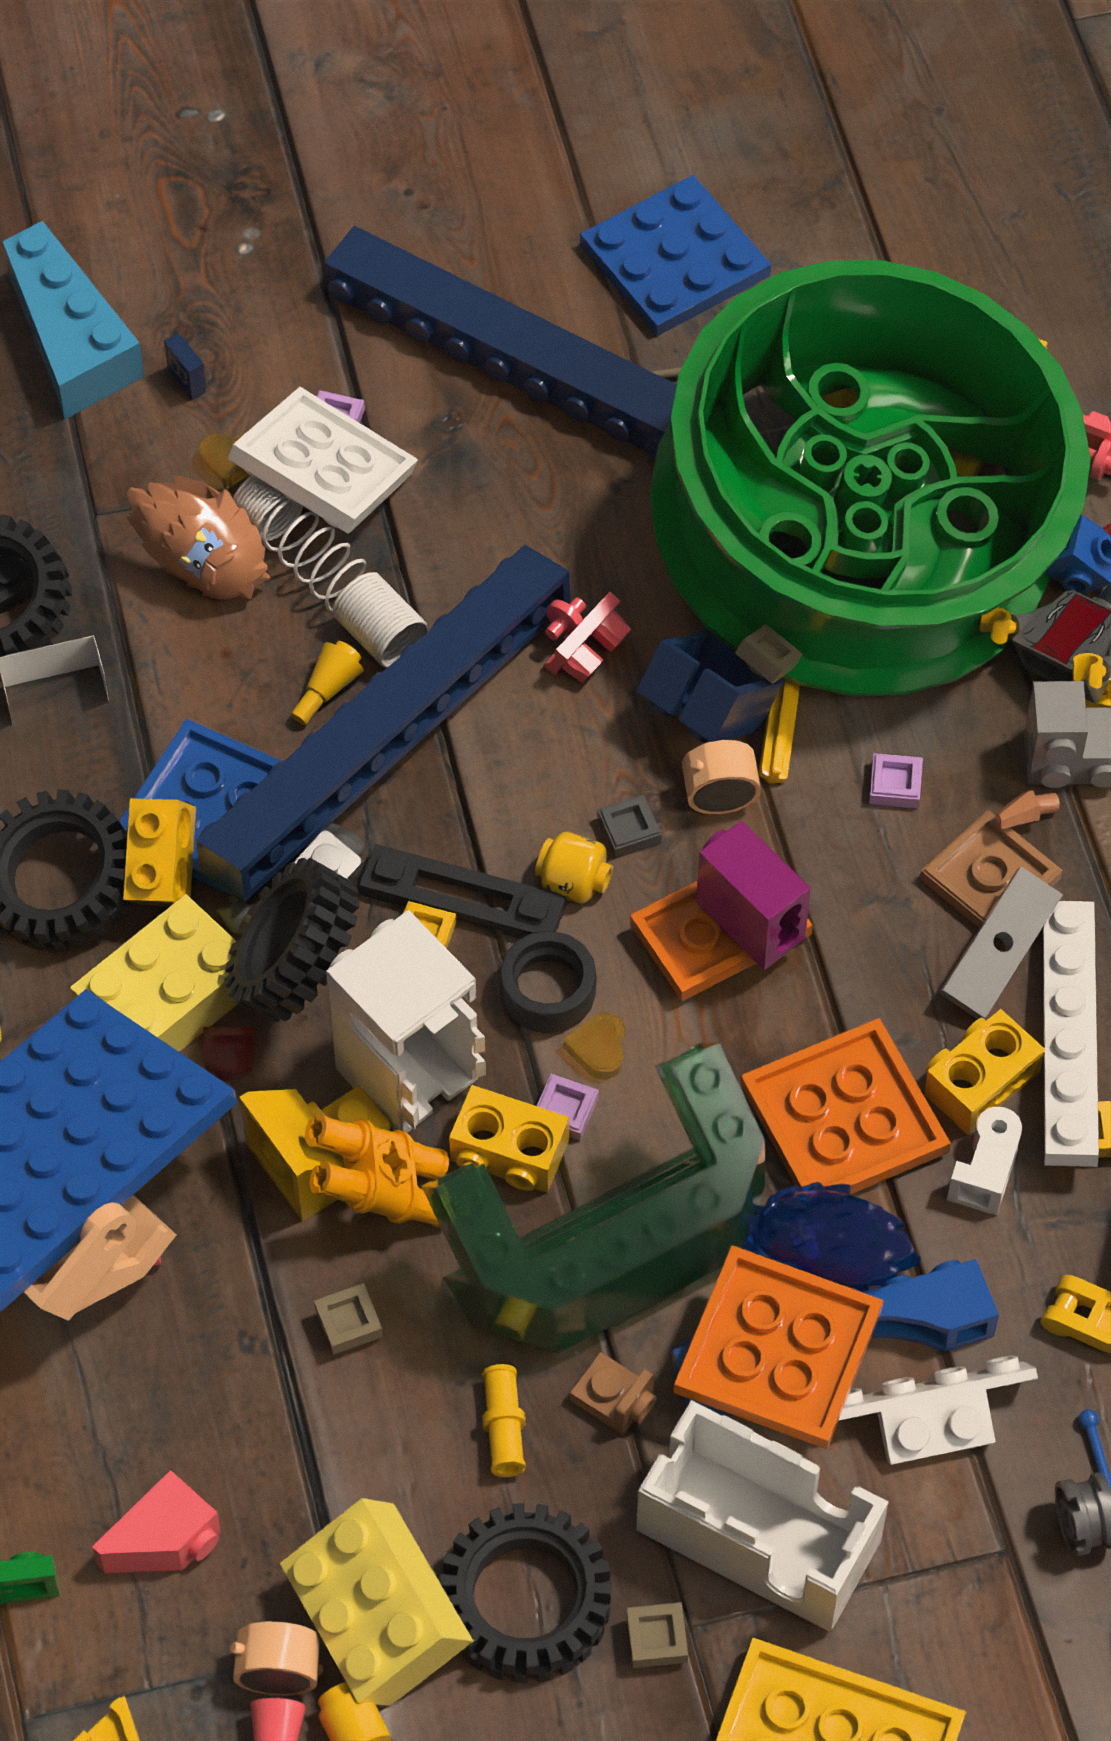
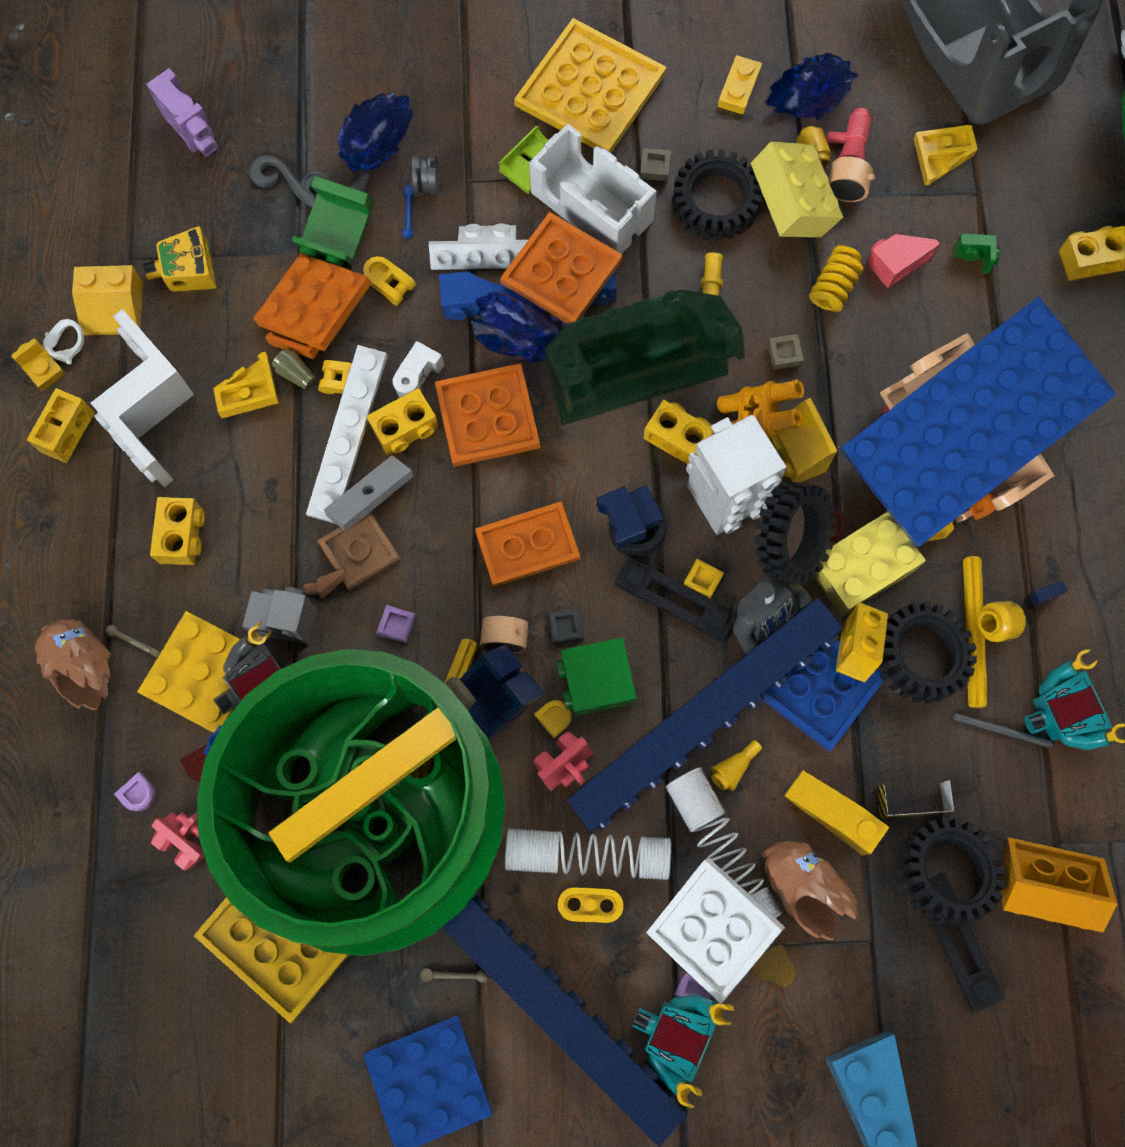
camera: 165 degrees left, 15 degrees up
(164, 643) = (837, 813): none -> yellow slope
(185, 366) = (797, 1049): dark blue tile -> none
(271, 1454) = (837, 279): none -> yellow piece
(348, 342) = (680, 1039): none -> torso
(504, 476) = (590, 905): none -> yellow plate
(562, 747) = (596, 677): none -> green brick
(564, 965) = (629, 514): none -> dark blue piece
(571, 1100) = (642, 454): lavender tile -> none
(573, 867) = (606, 598): yellow head -> none
(588, 519) = (540, 852): none -> white piece
(598, 1045) = (613, 479): clear yellow tile -> none
(614, 700) = (554, 717): none -> yellow tile
(614, 1393) = (646, 284): medium nougat bracket -> none
(752, 894) = (509, 529): magenta piece -> none
(855, 450) = (363, 785): none -> yellow tile
(906, 1574) = (515, 166): none -> lime piece

